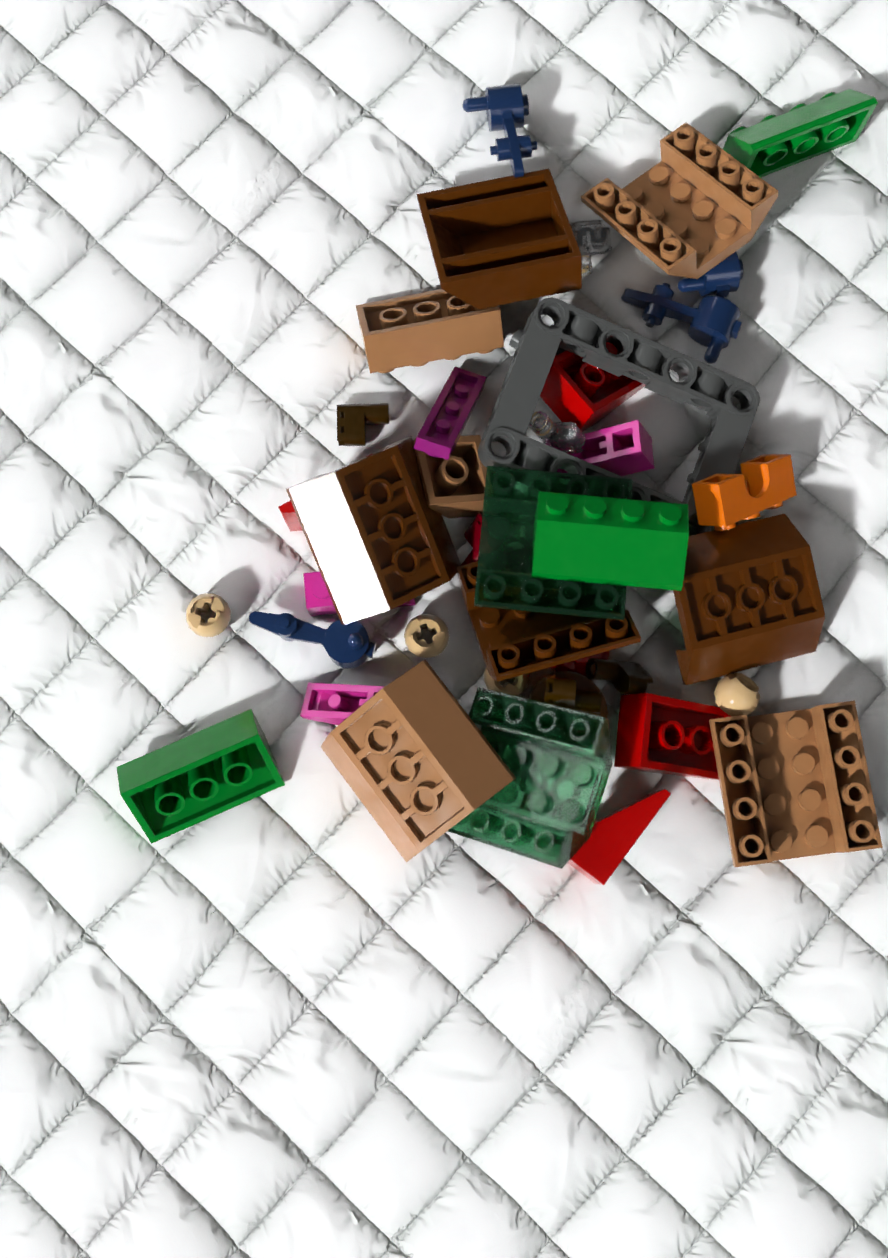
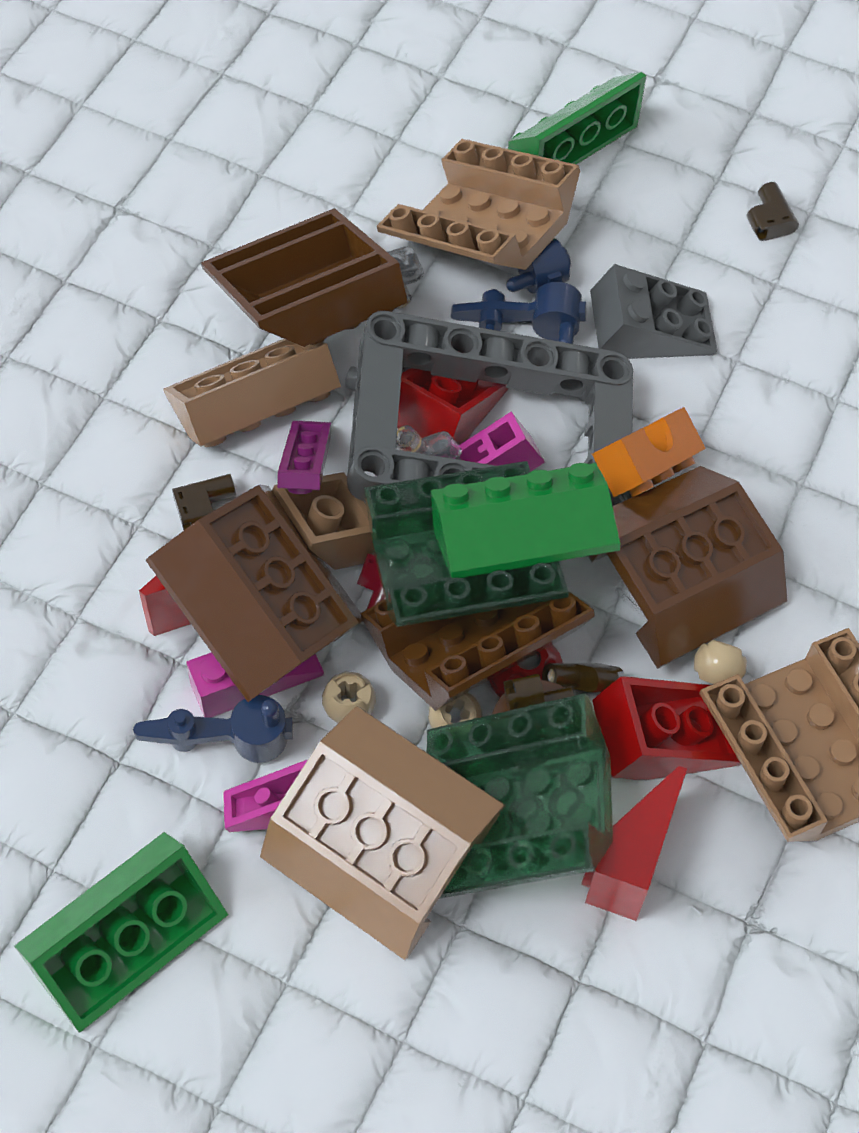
camera: 20 degrees left, 20 degrees down
(202, 604) = (94, 751): tan piece -> none
(506, 112) = (271, 174): dark blue piece -> none
(796, 348) = (650, 316): none -> dark grey slope

